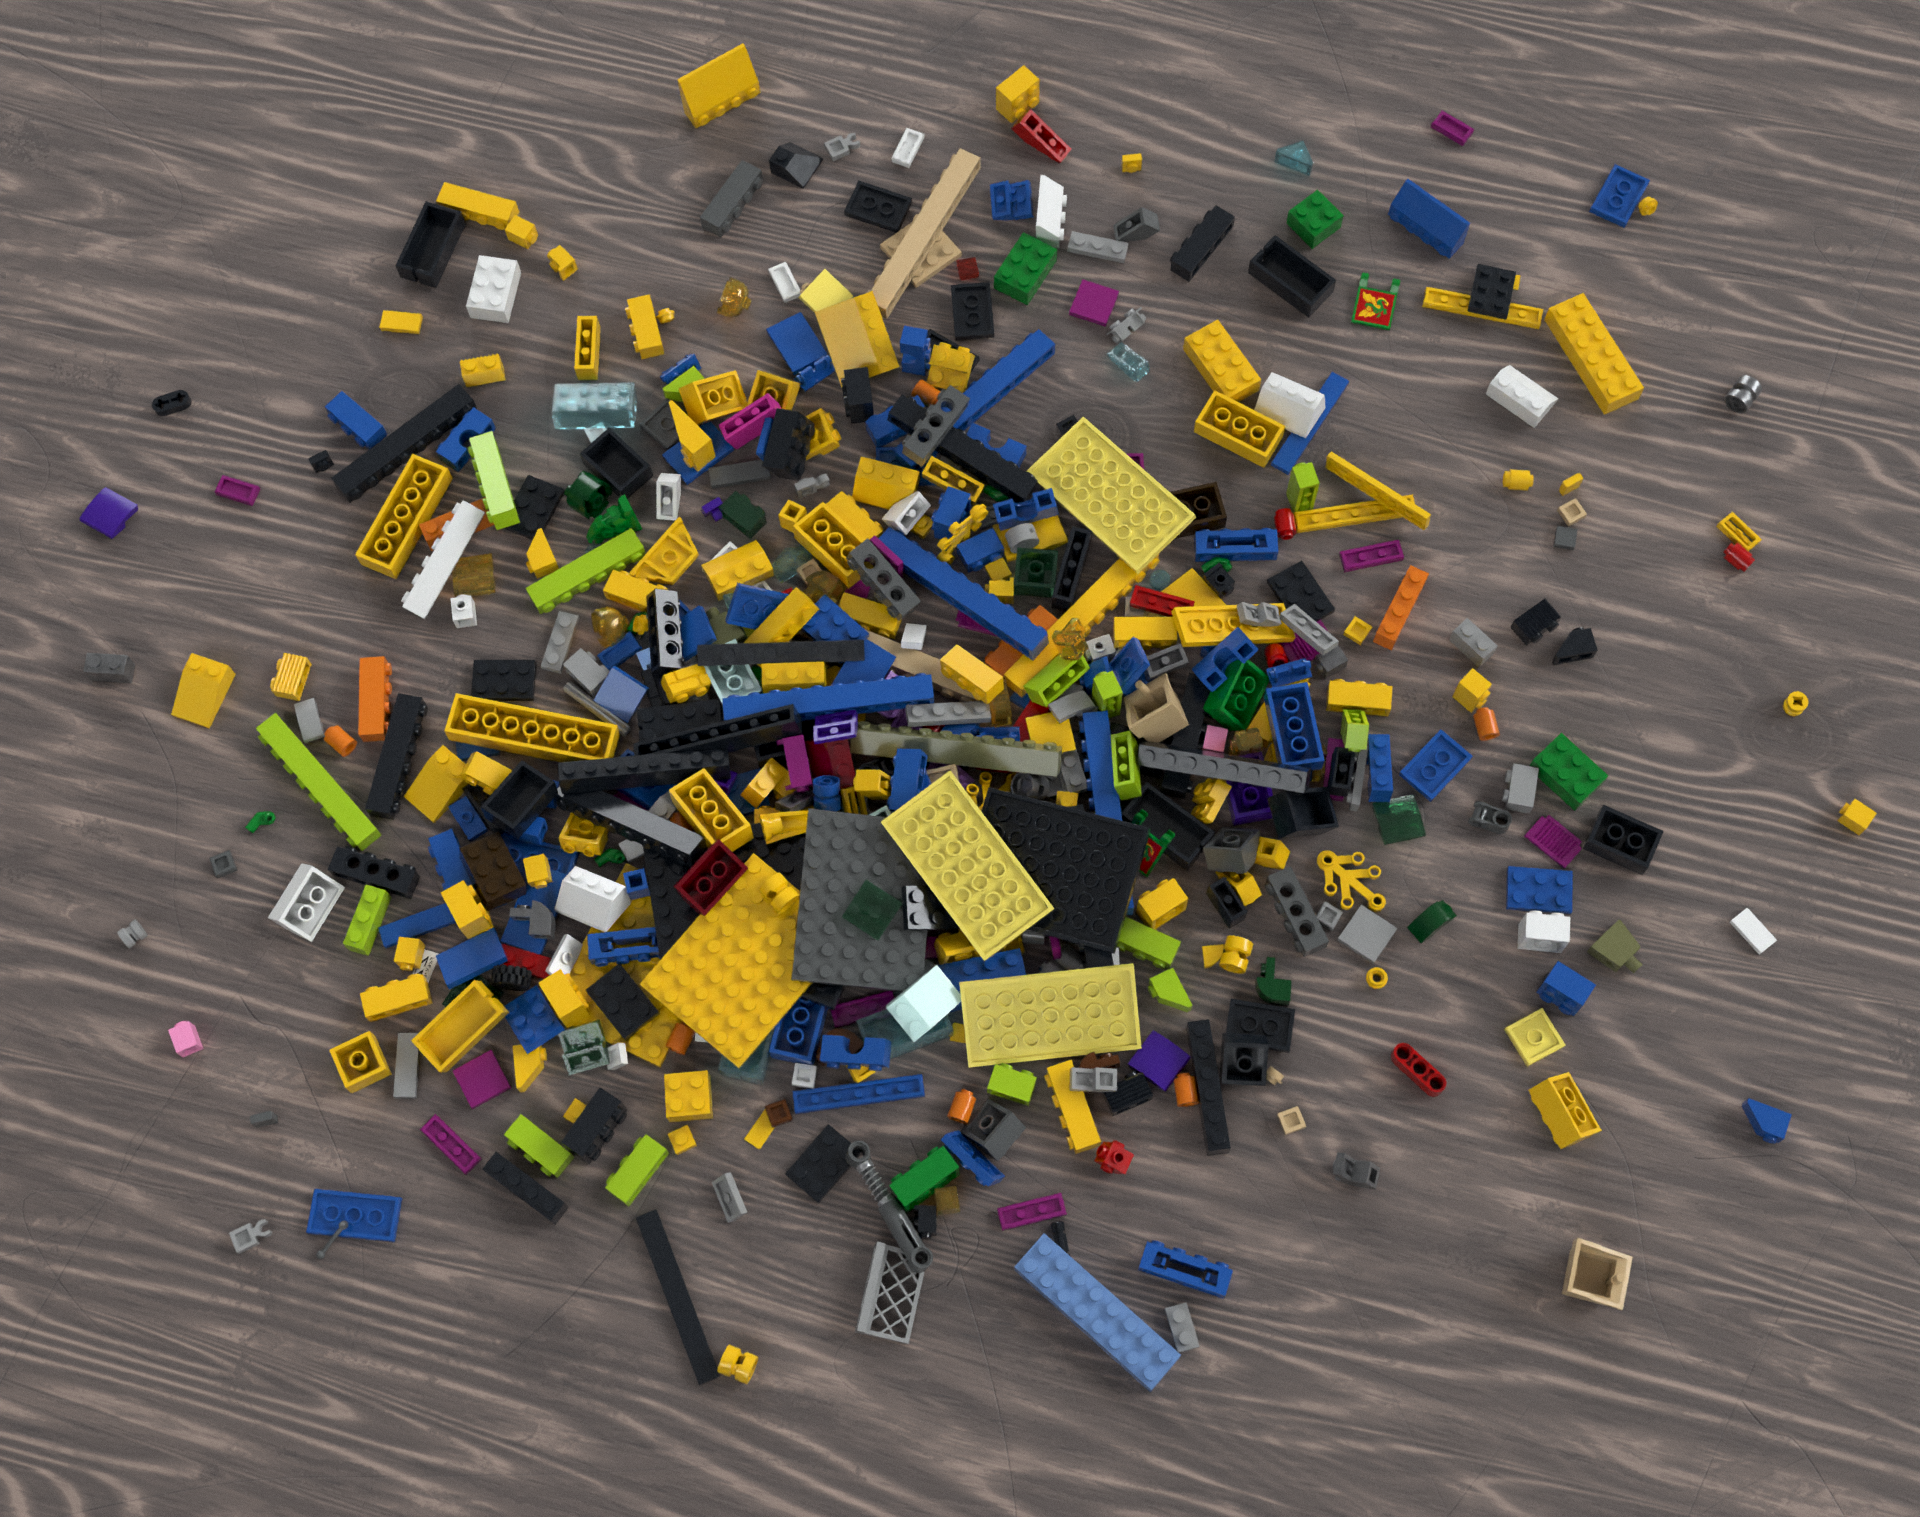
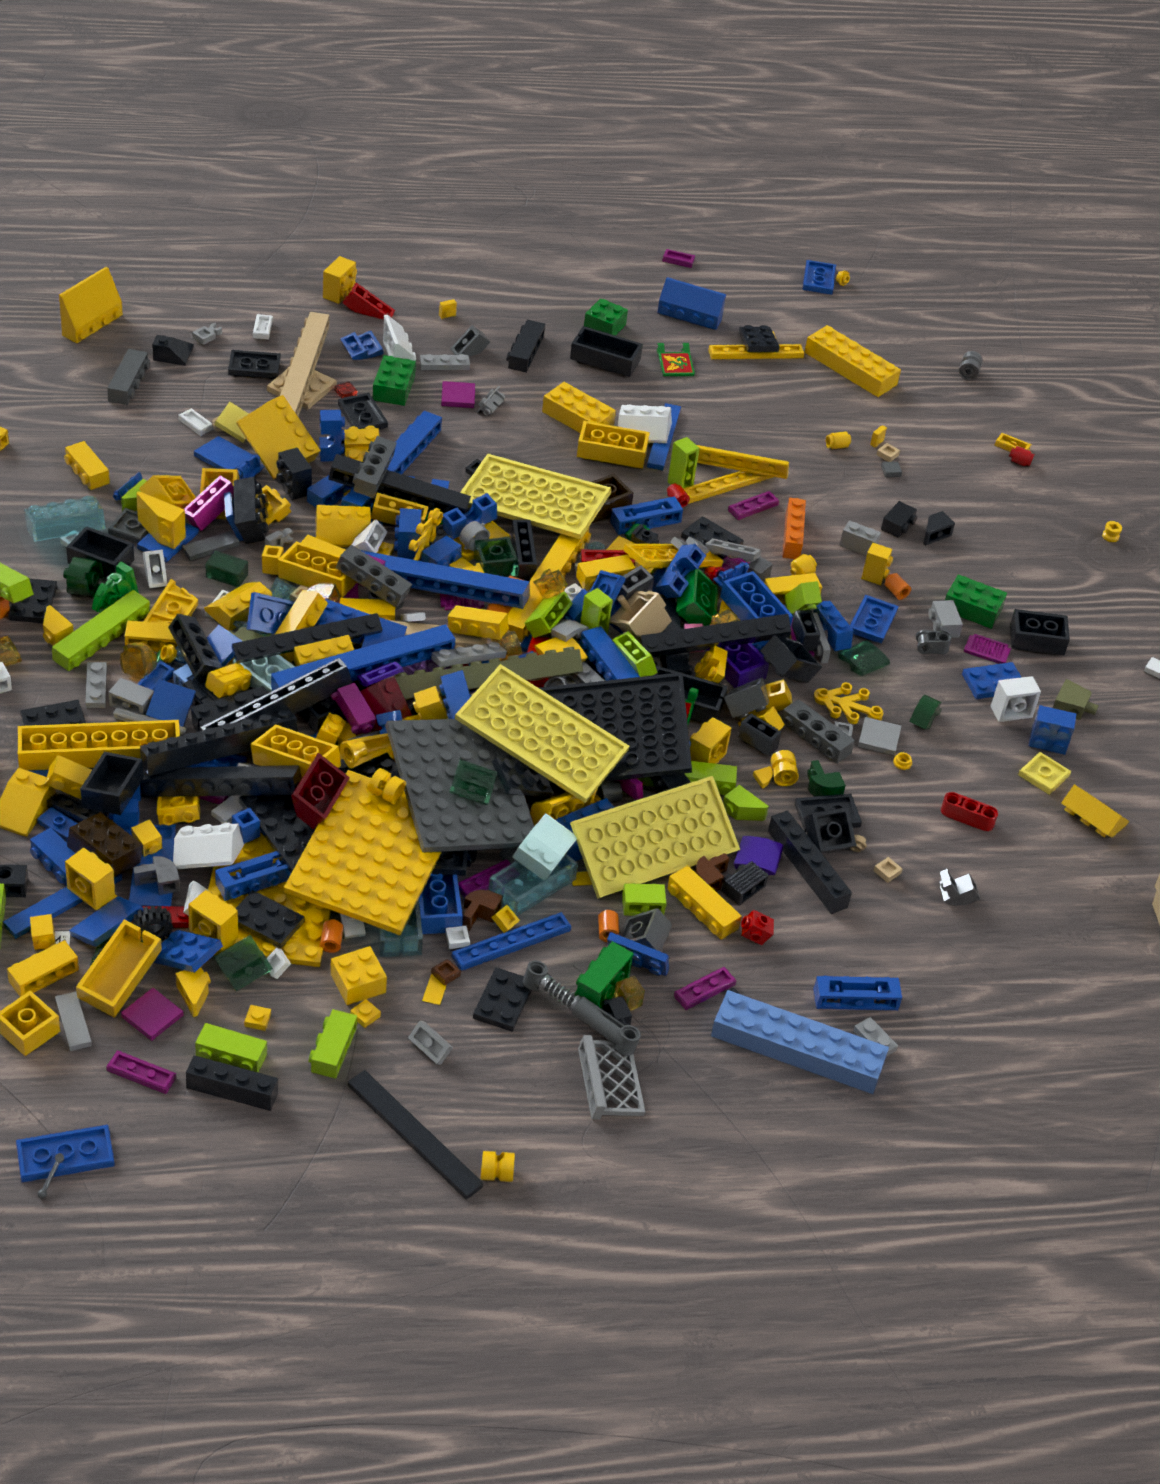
camera: 30 degrees left, 25 degrees down
(587, 348) = (41, 482): yellow brick -> none
(595, 1126) = (282, 1013): black brick -> none
(610, 855) = (210, 819): green arm -> none
(665, 316) = (103, 455): yellow plate -> none
(713, 509) = (198, 570): dark purple tile -> none
(734, 298) = (159, 433): clear yellow cylinder -> none
(873, 1055) = (517, 894): blue arch -> none
(1093, 1079) = (717, 872): light grey slope -> none
(1135, 371) = (508, 424): clear light blue slope -> none
(1186, 1090) = (792, 869): orange brick -> none
(1295, 157) = (572, 288): clear light blue slope -> none
(1357, 630) = (768, 549): yellow plate -> none
(1386, 668) = (803, 565): none -> yellow head
(1521, 395) = (812, 394): white slope -> none

